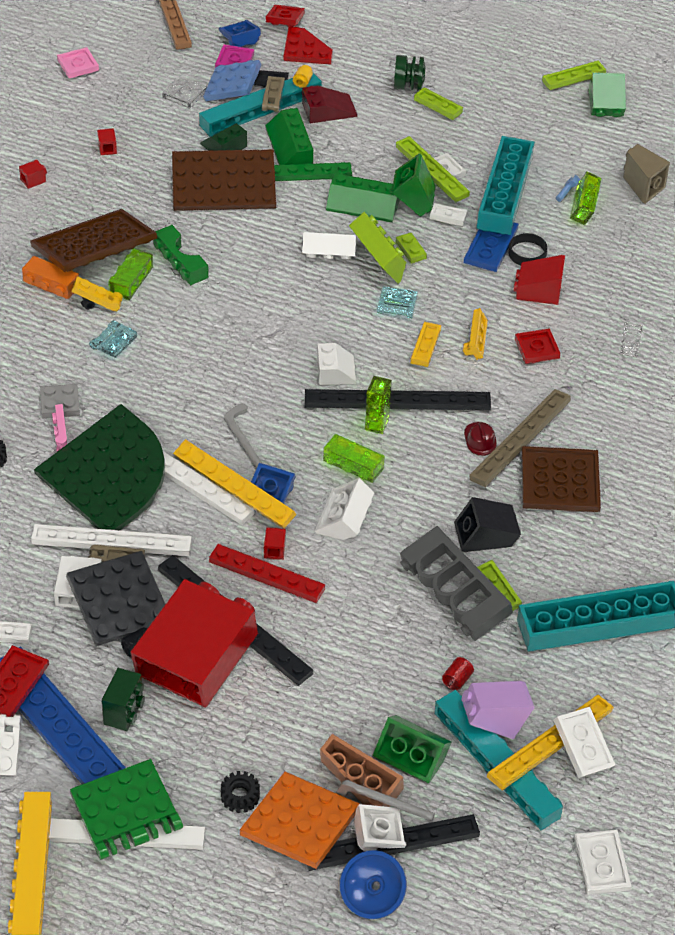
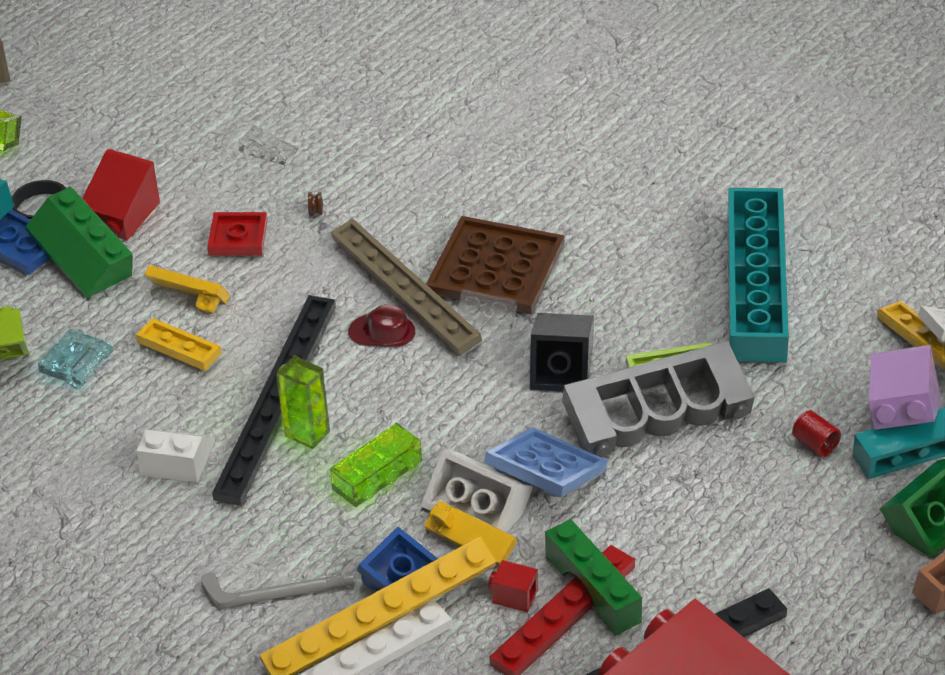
camera: 70 degrees left, 5 degrees down
(276, 590) = (612, 594): none -> green arch
(313, 514) = (462, 528): none -> yellow hinge
(377, 535) = (545, 462): none -> medium blue plate
(490, 274) = (80, 243): none -> green slope
(513, 482) = (487, 309): none -> clear plate
(581, 375) = (315, 203): none -> reddish brown bush

